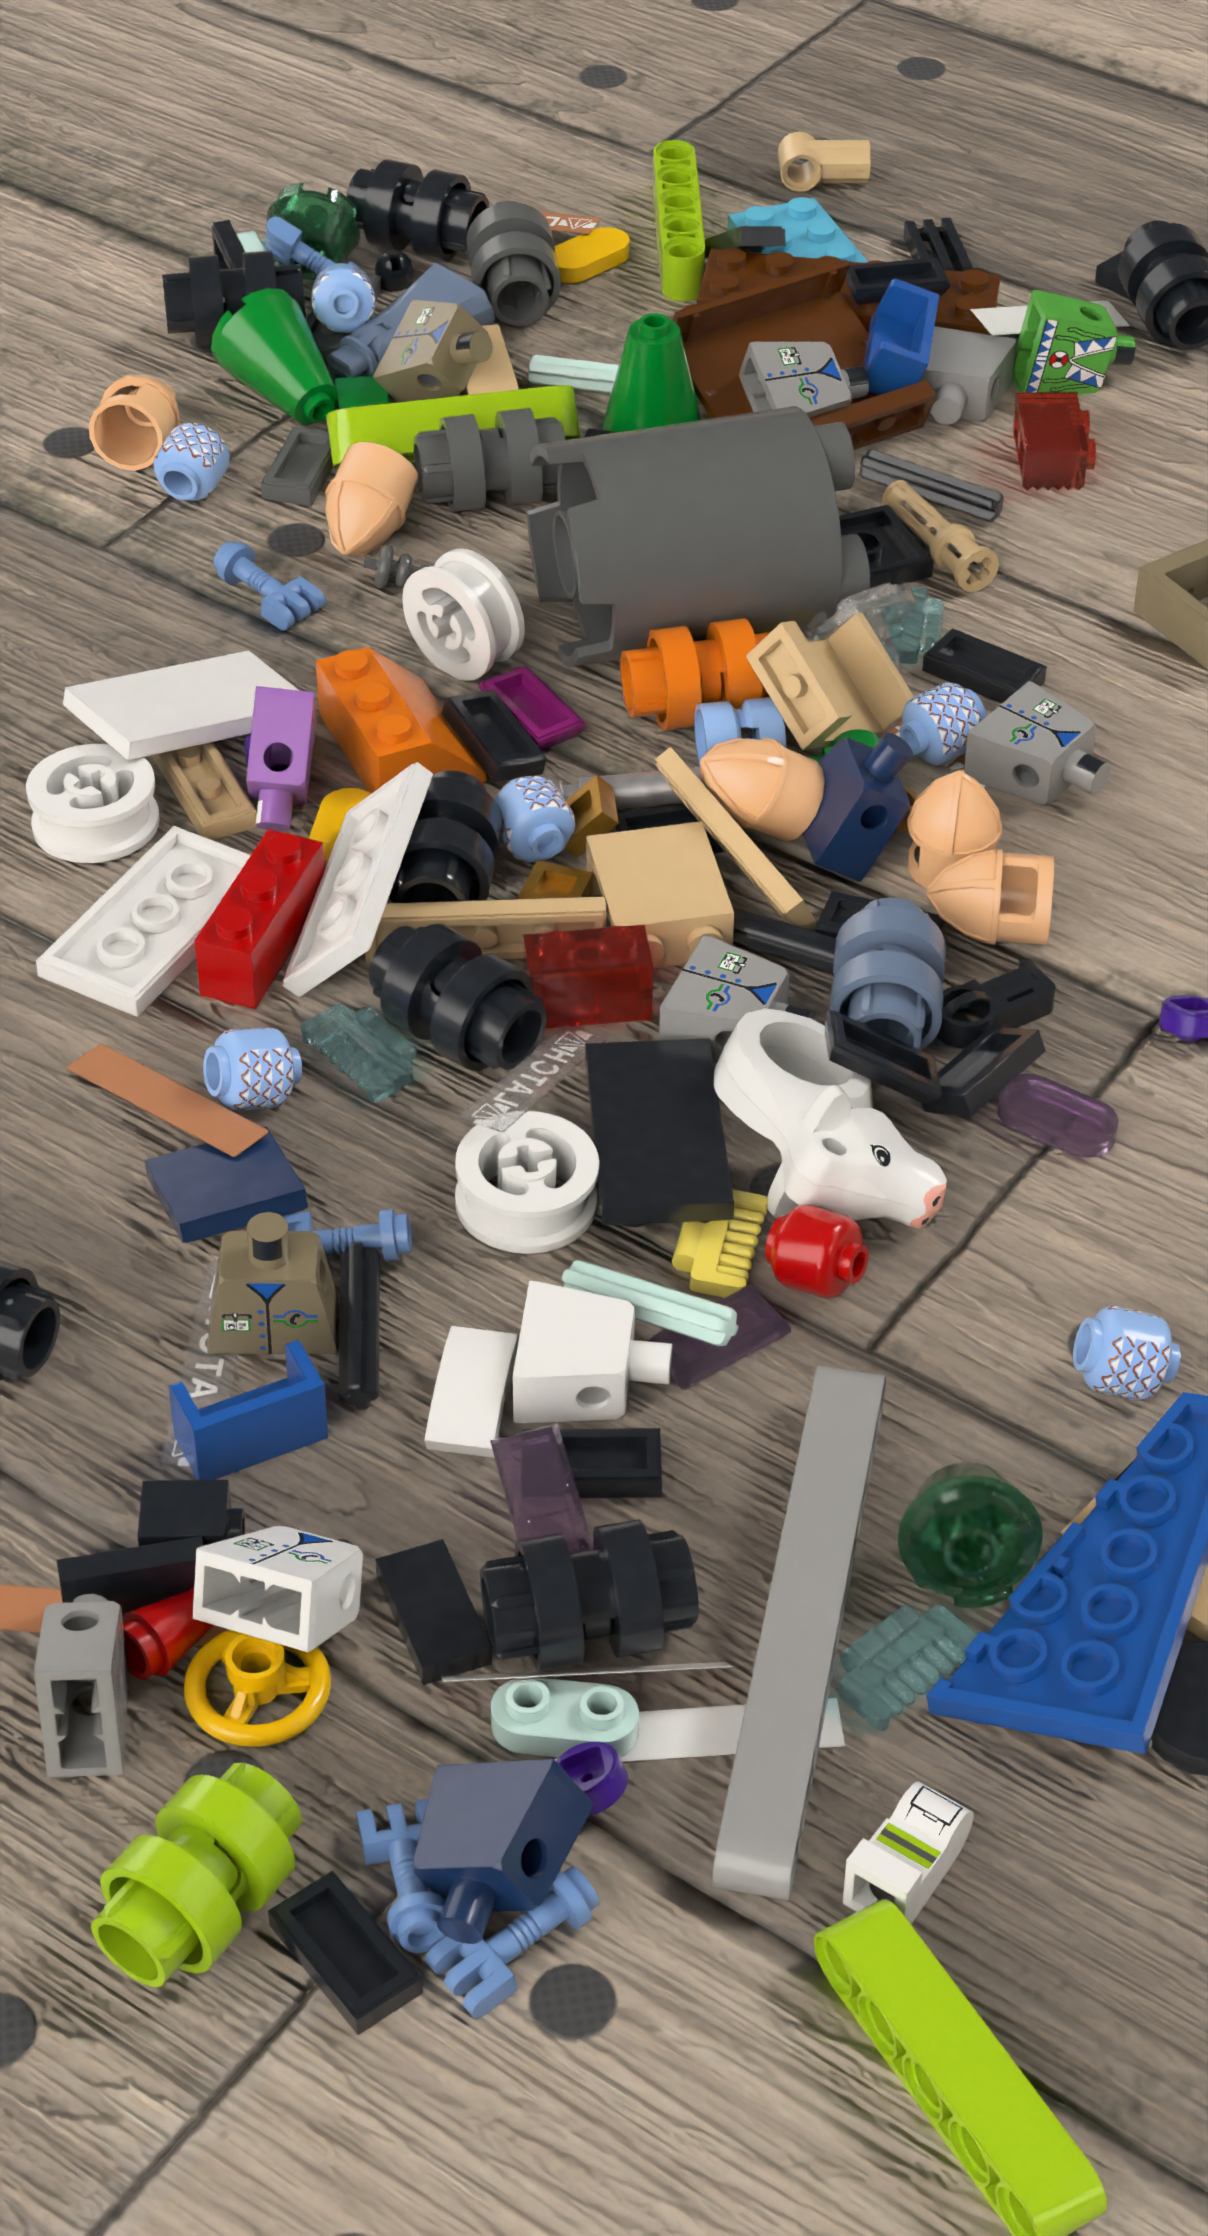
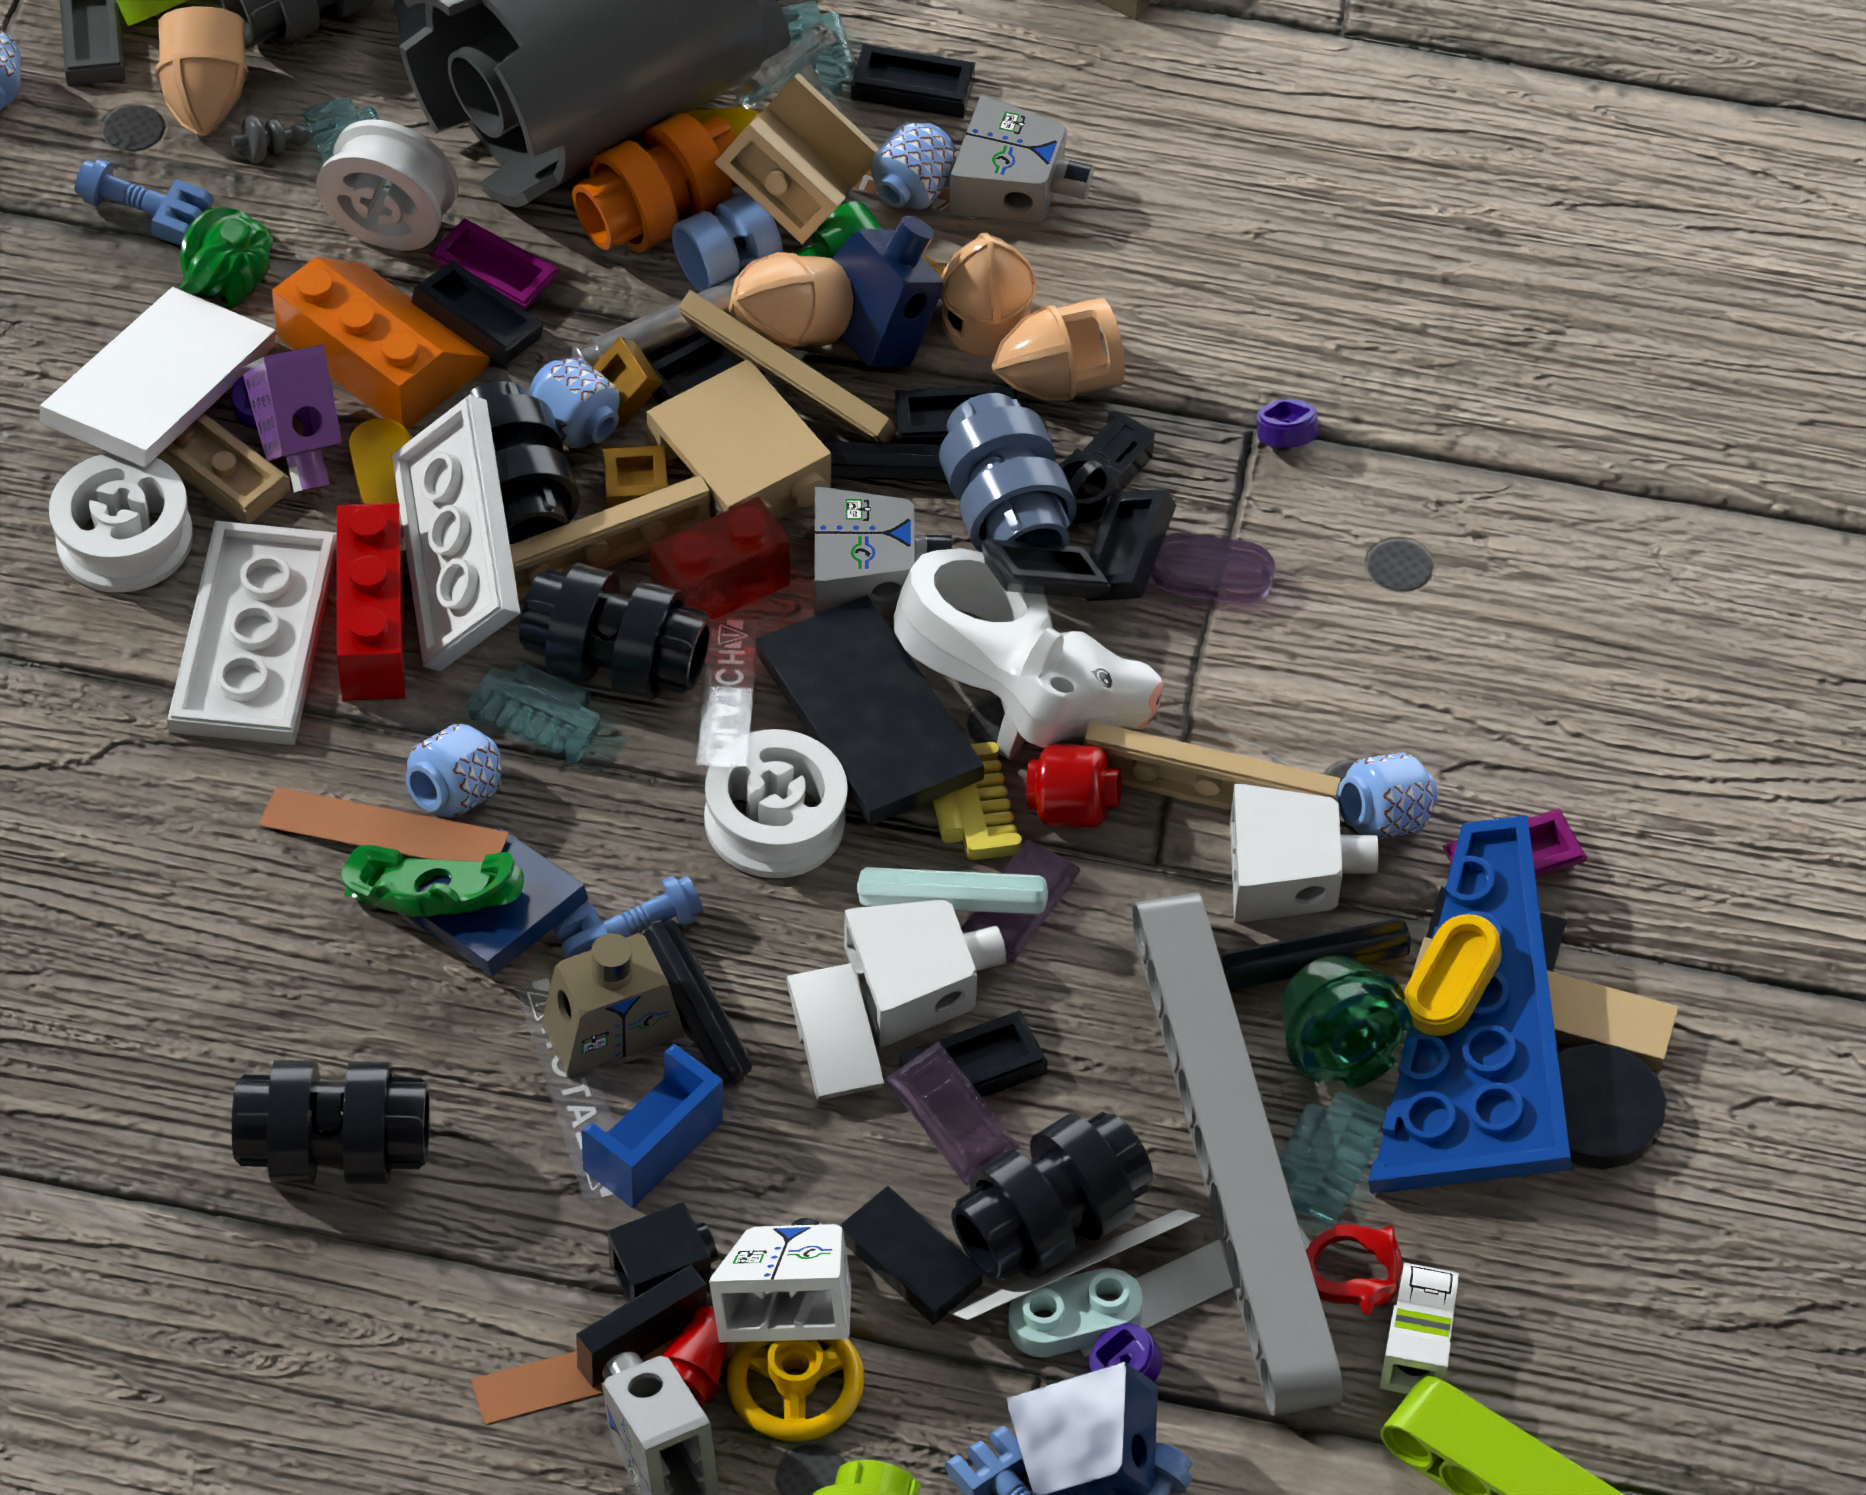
camera: 25 degrees left, 10 degrees up
(150, 1144) = (391, 882): none -> green piece
(303, 636) = (224, 255): none -> green hat
(862, 1797) = (1361, 1292): none -> red piece
(965, 1287) = (1197, 771): none -> tan tile
(1000, 1374) = (1291, 853): none -> white torso
(1035, 1478) = (1287, 957): none -> black axle
(1103, 1525) = (1453, 974): none -> yellow tile

